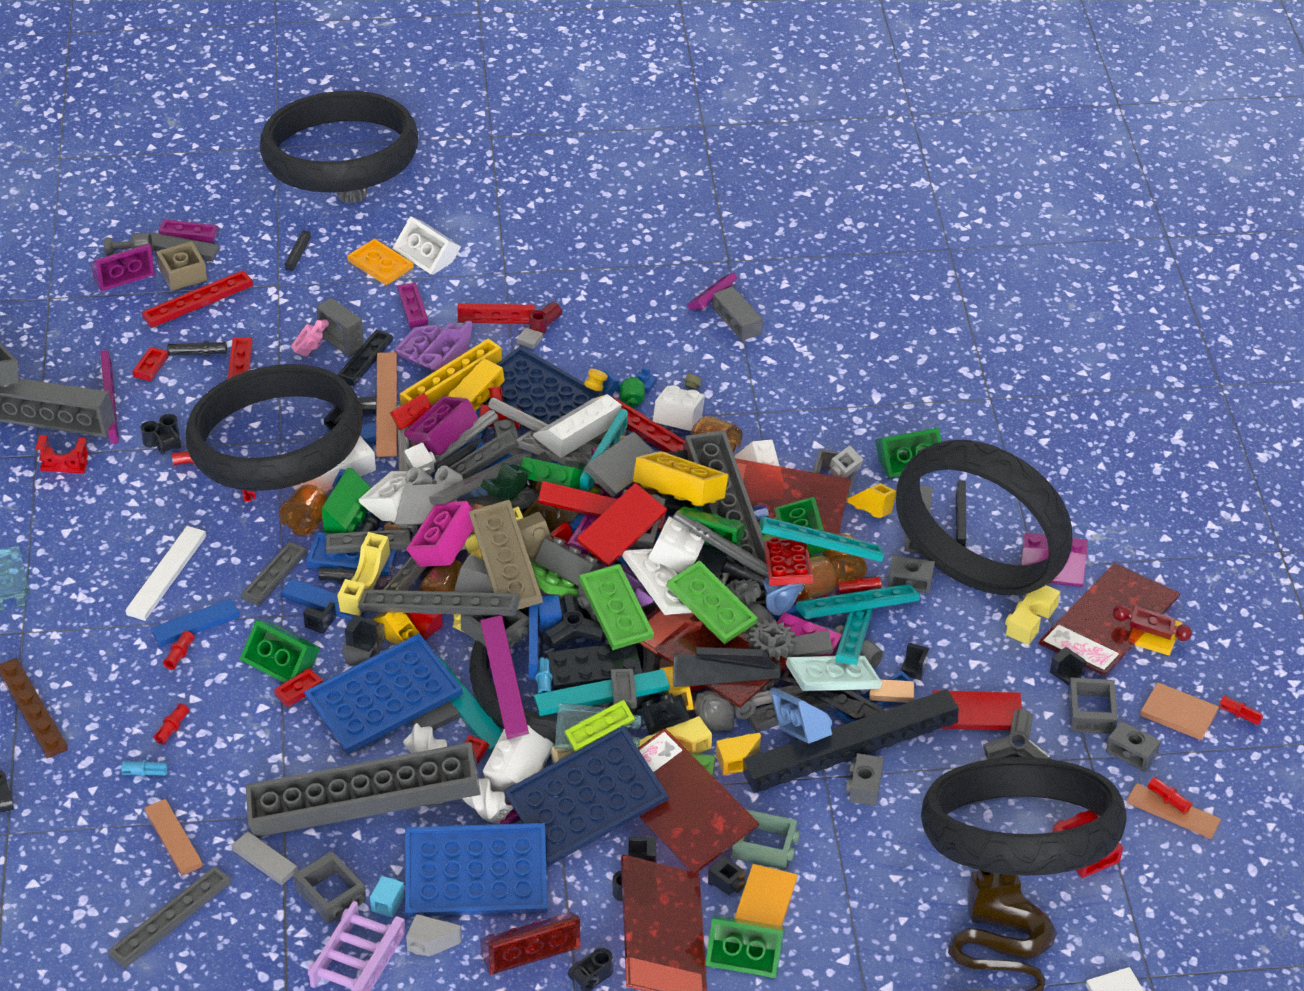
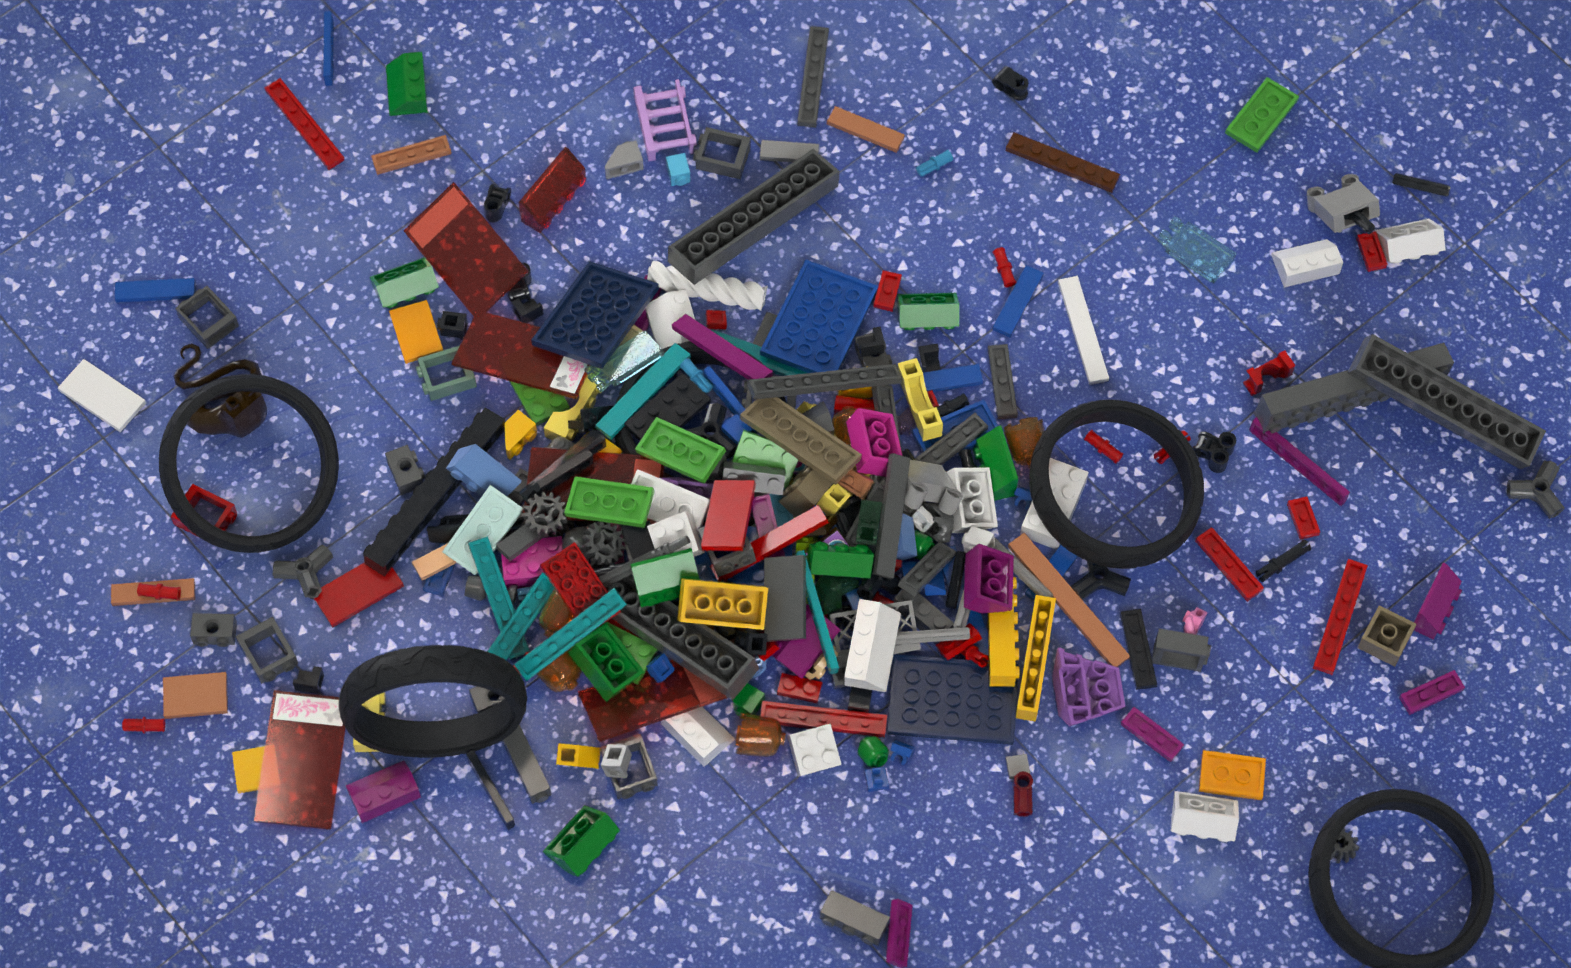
camera: 145 degrees right, 20 degrees up
(137, 240) = (1452, 639): dark grey piece -> none
(171, 723) = (950, 207): red pin -> none
(206, 250) = (1420, 672): dark grey tile -> none
(297, 250) = (1316, 737): black axle -> none
(410, 411) = (1028, 583): red plate -> none
(475, 870) = (631, 220): blue plate -> none
(494, 313) = (1063, 775): red plate -> none
(563, 532) = (789, 513): red tile -> none
(595, 379) = (908, 739): yellow wheel -> none
(599, 725) = (619, 353): lime plate -> none
(623, 687) = (625, 395): dark grey tile -> none
(692, 381) = (832, 808): olive plate -> none
(915, 661) = (435, 606): black panel -> none
(1152, 622) = (258, 760): dark red plate -> none

